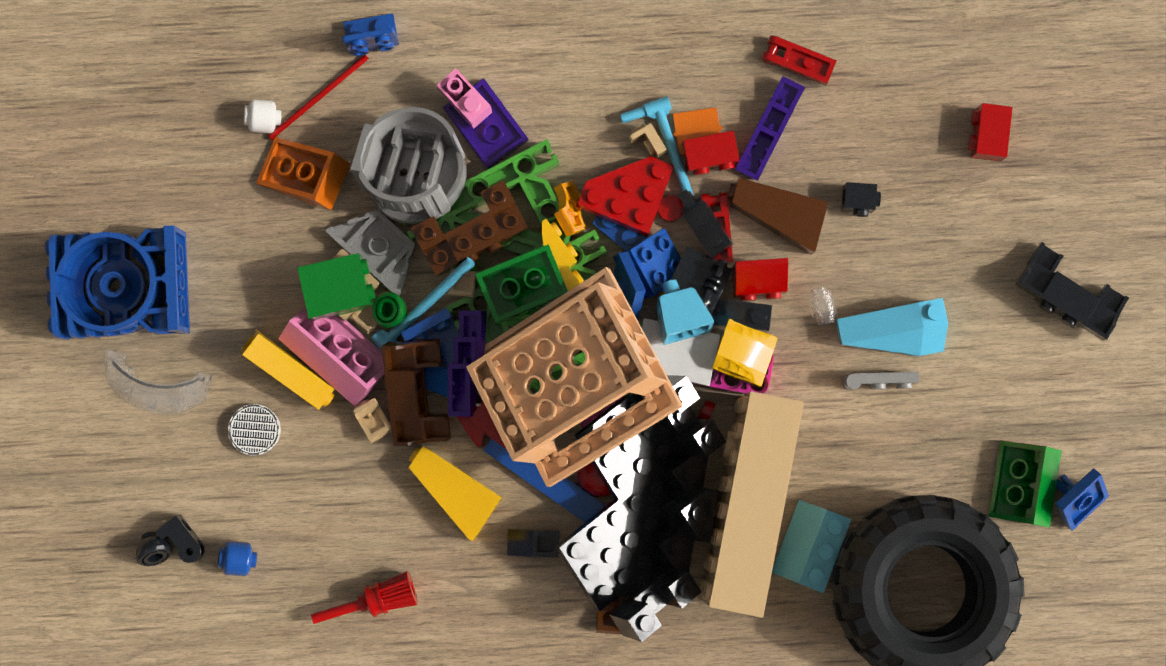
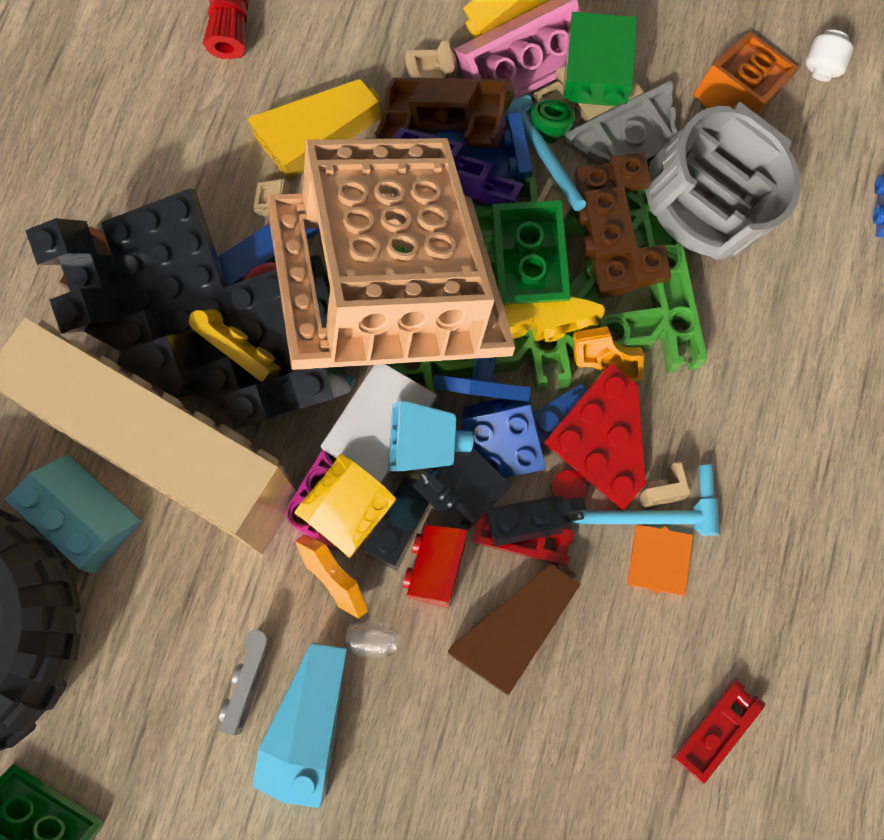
camera: 110 degrees right, 10 degrees down
(318, 97) = (835, 129): red axle -> none
(465, 98) = (788, 276): bright pink slope -> none
(495, 135) = (748, 301): dark purple tile -> none
(524, 502) = (265, 188): none -> tan tile
(533, 543) = (219, 189): black slope -> none
(660, 472) = (234, 344): none -> yellow plate
(706, 410) = (292, 439): red tile -> none
(710, 152) = (626, 562): red brick -> none
(770, 128) = (637, 657): dark purple slope -> none
(784, 359) = (340, 585): none -> light orange tile
(860, 198) = (498, 746): black brick -> none

